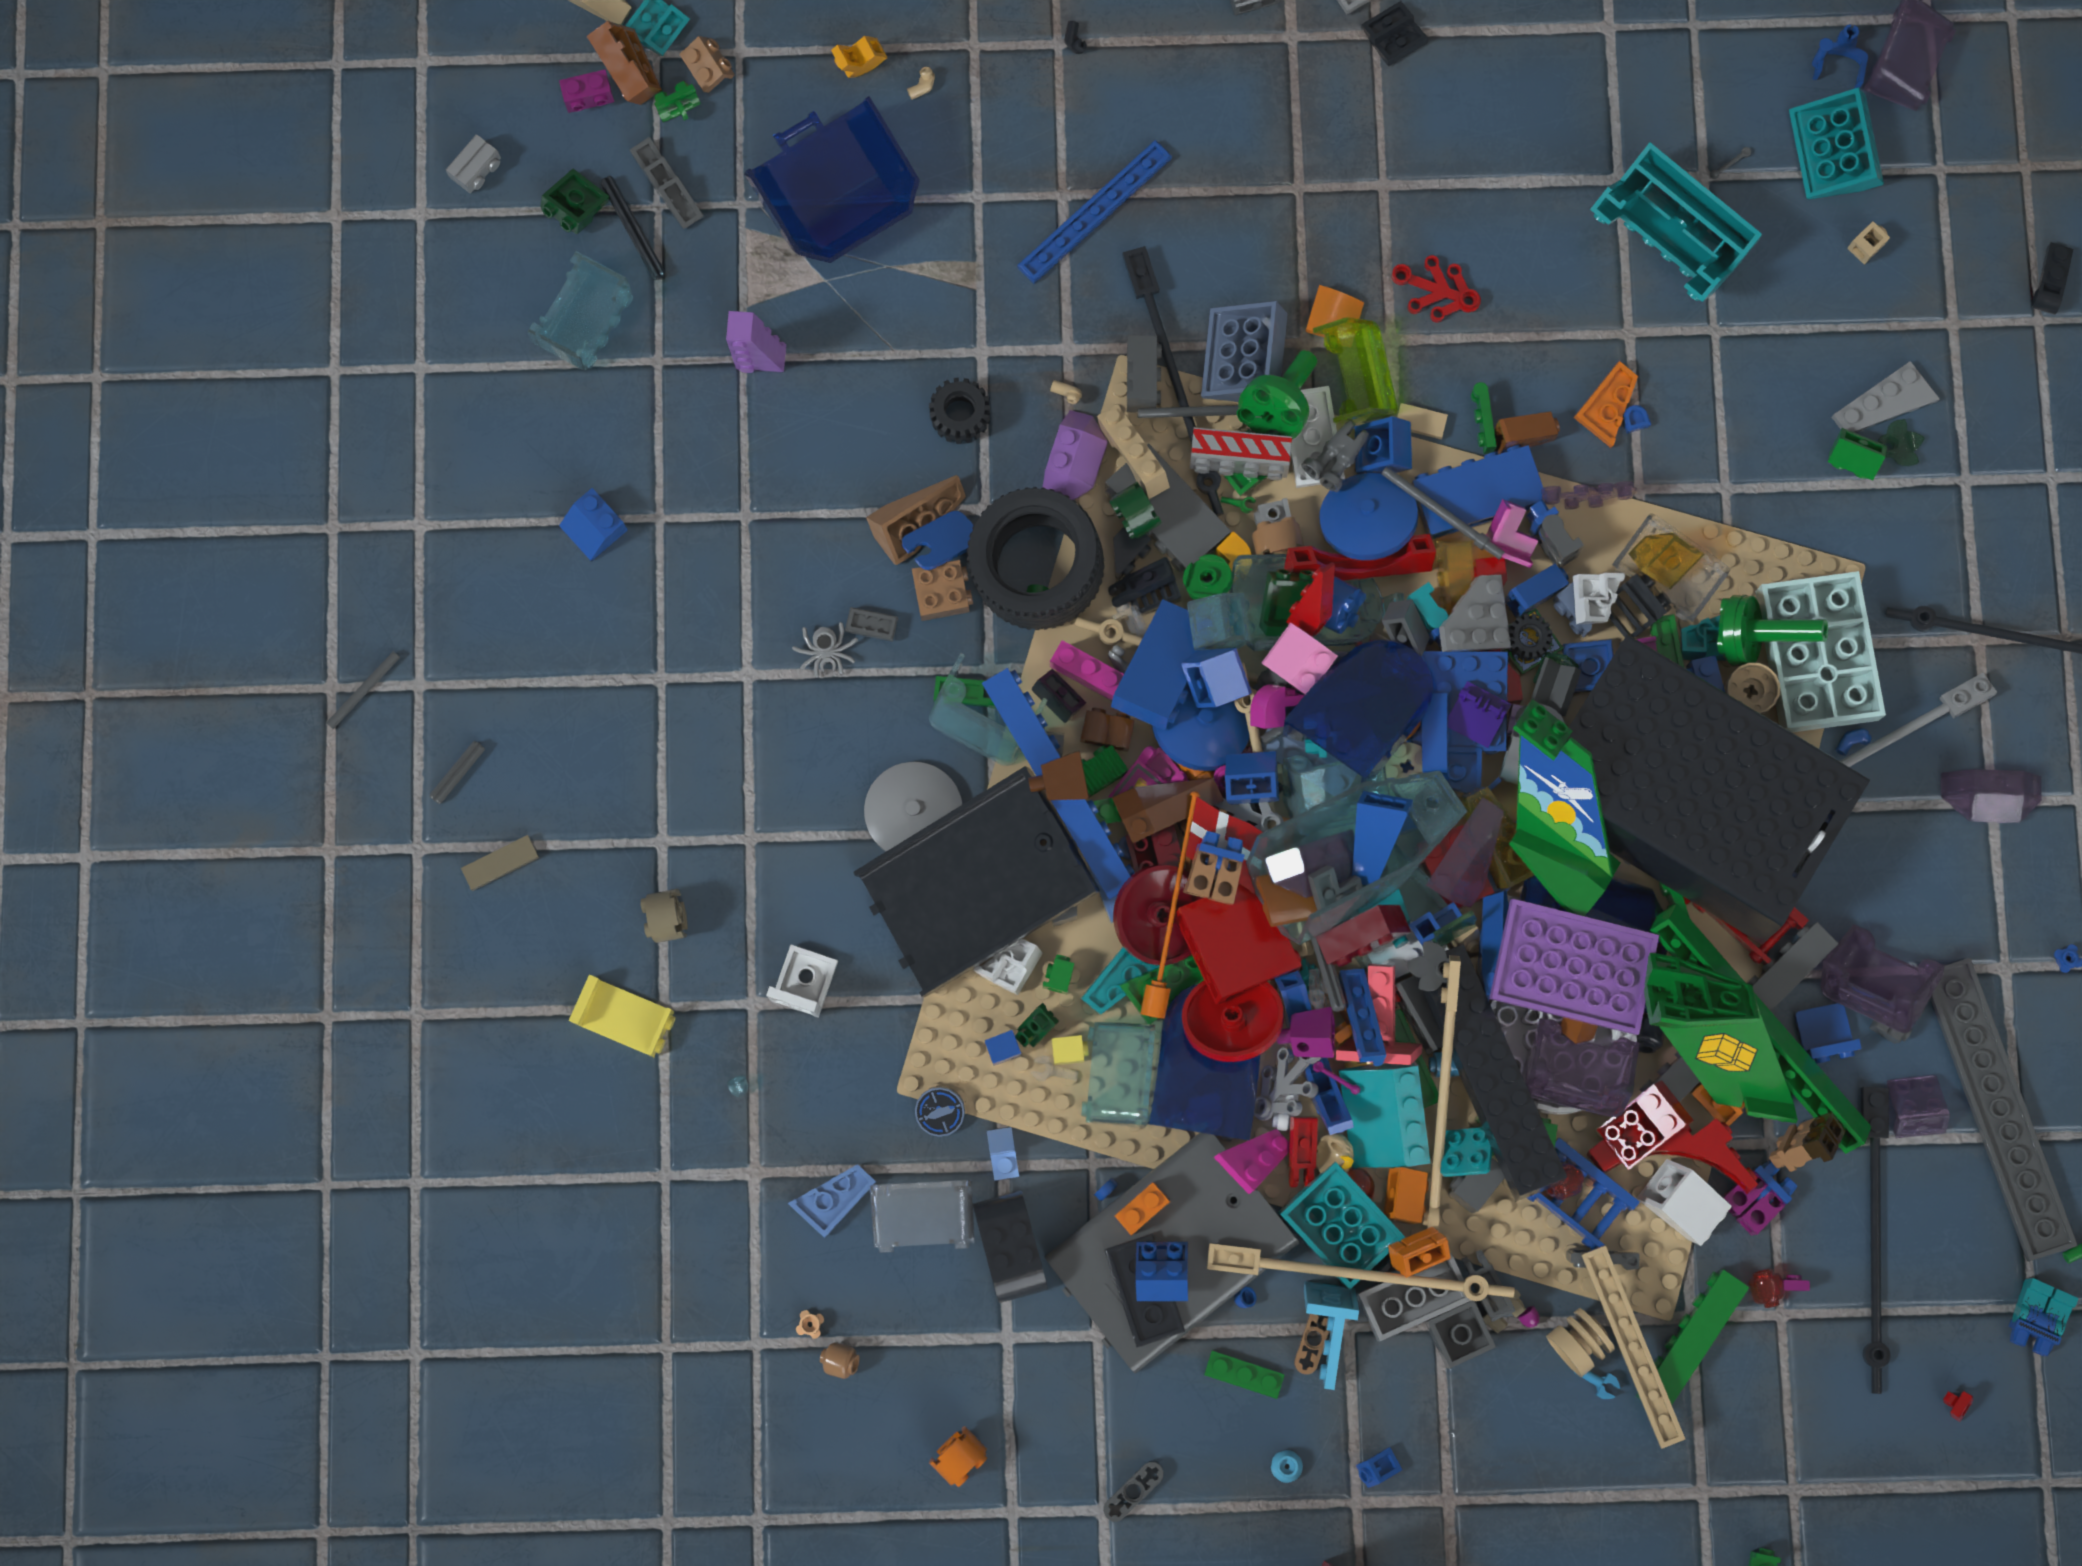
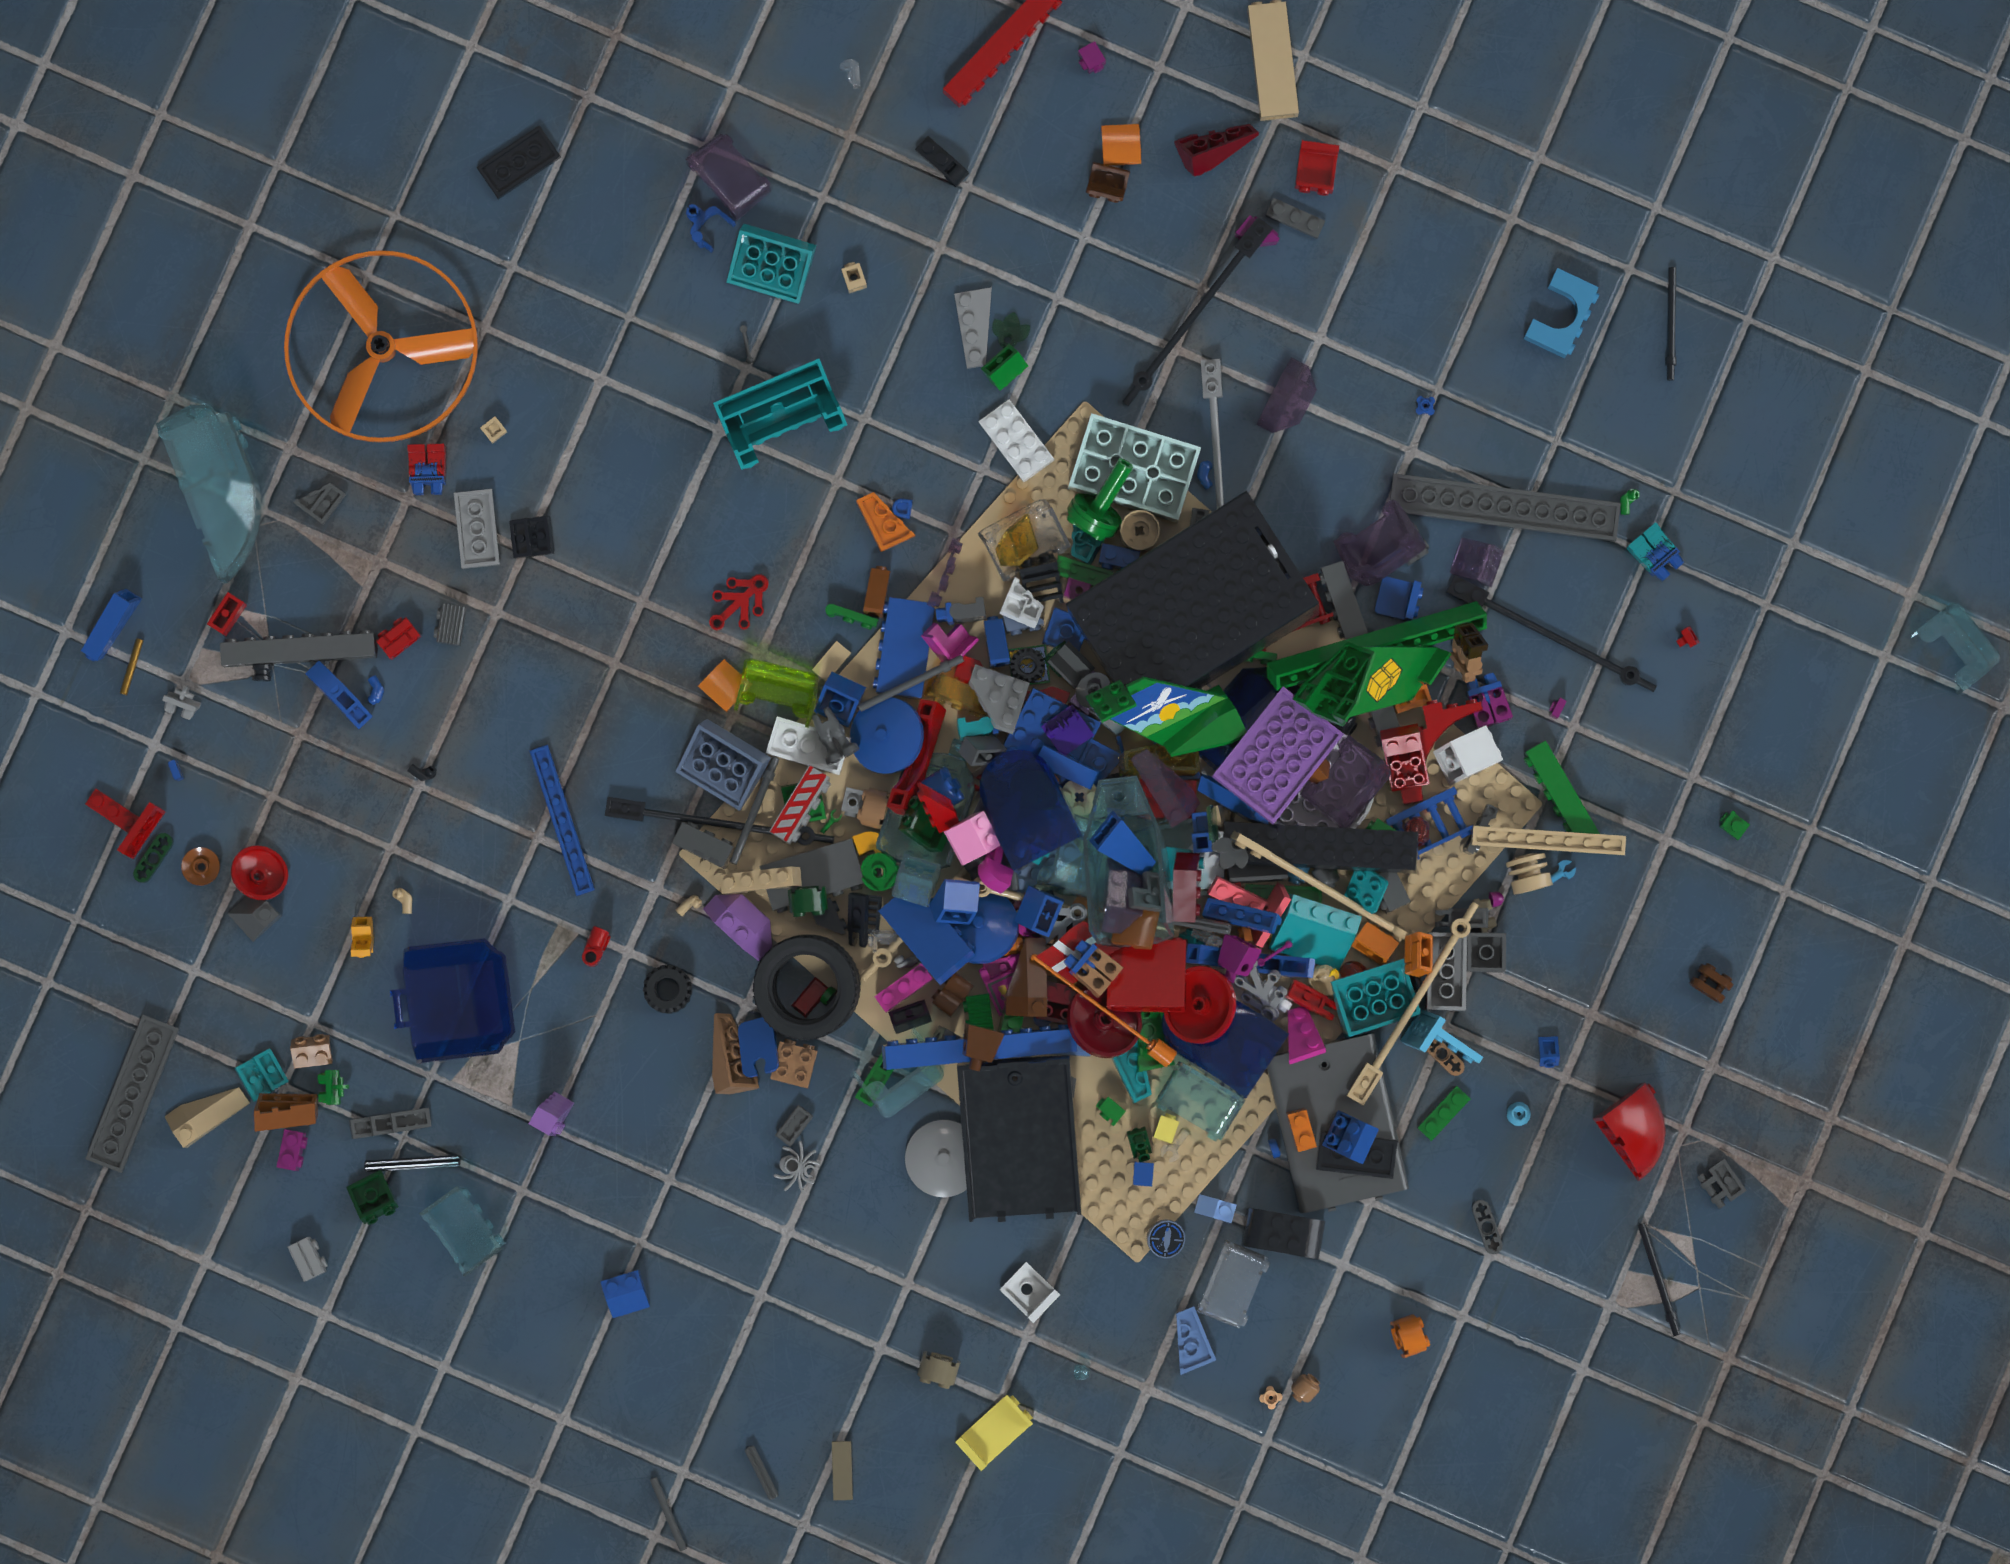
camera: 70 degrees left, 5 degrees up
(975, 310) = (597, 944): none -> red piece
(1011, 966) = (1089, 1141): white slope -> none
(1025, 574) = (810, 997): none -> red tile
(1245, 1298) = (1393, 1087): blue hinge -> none
(1276, 403) = (778, 763): green piece -> none
(1459, 1100) = (1326, 876): none -> dark grey head
(1767, 1288) = (1551, 728): clear red head -> none
(1779, 508) = (1016, 440): none -> white plate

